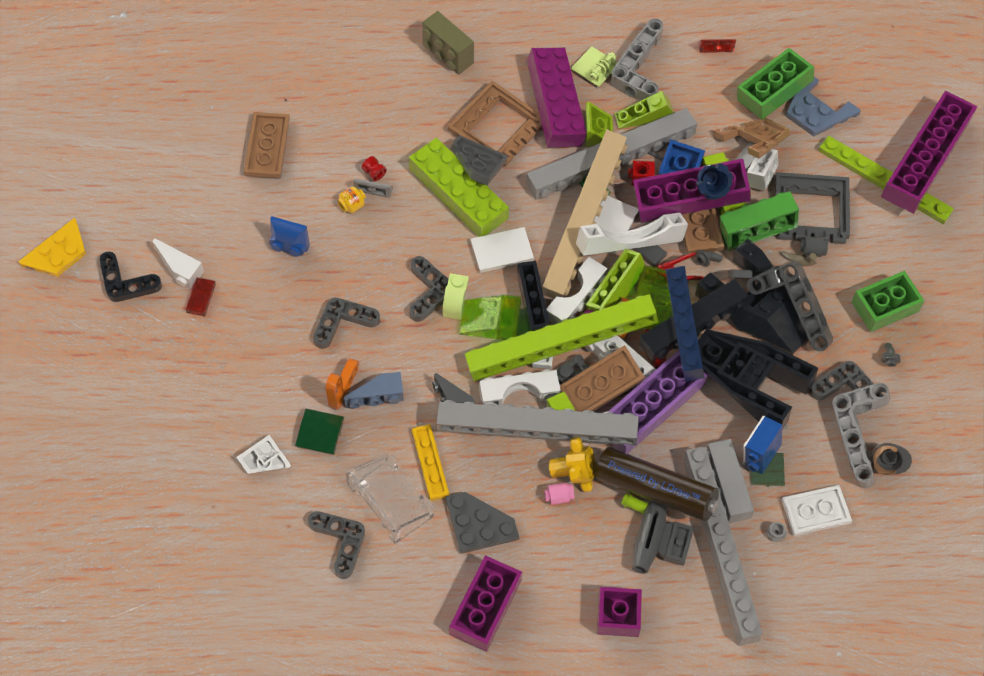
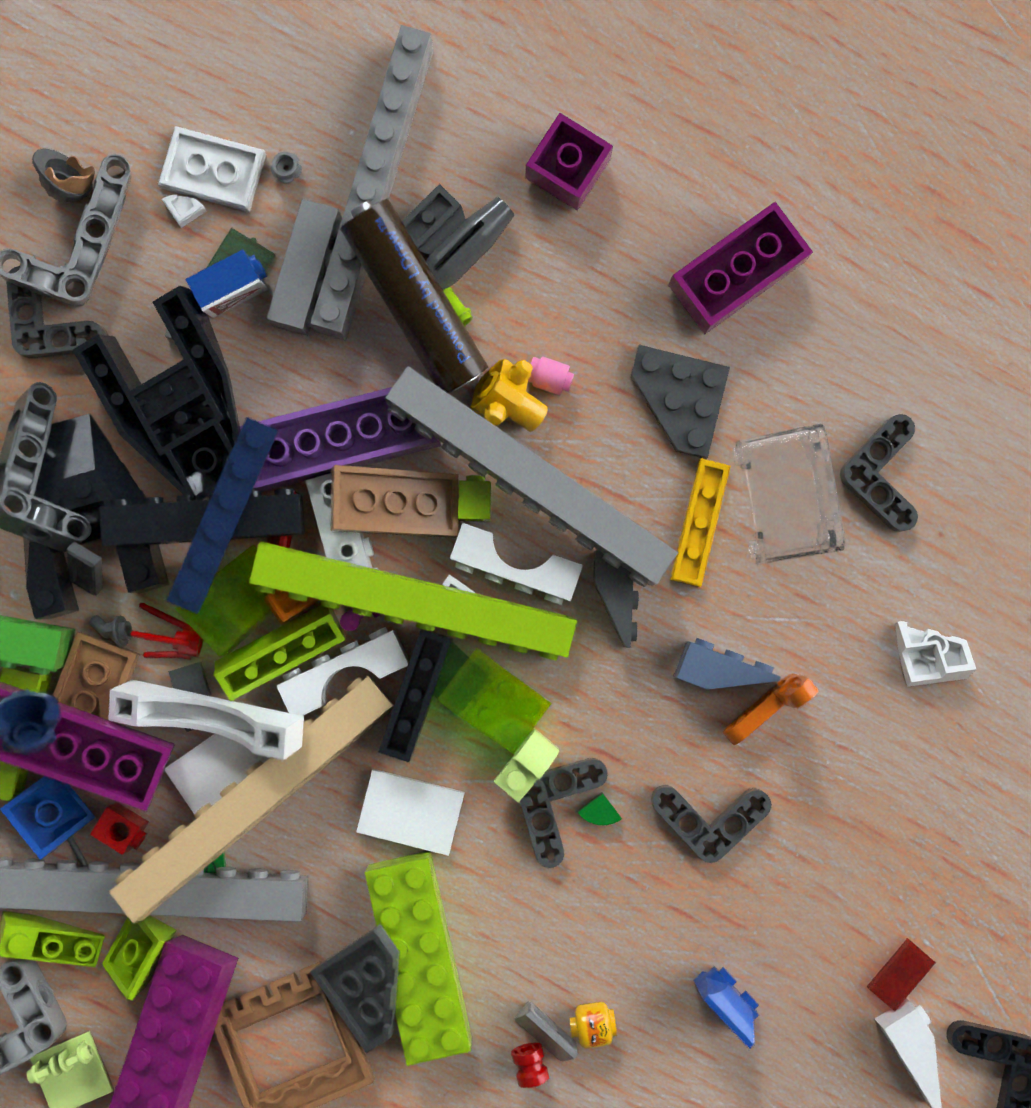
camera: 150 degrees left, 25 degrees up
(319, 431) = (833, 652): dark green slope -> none
(403, 296) = (599, 811): none -> green tile
(566, 371) = (433, 555): dark grey plate -> none
(817, 481) = (183, 208): none -> white tile

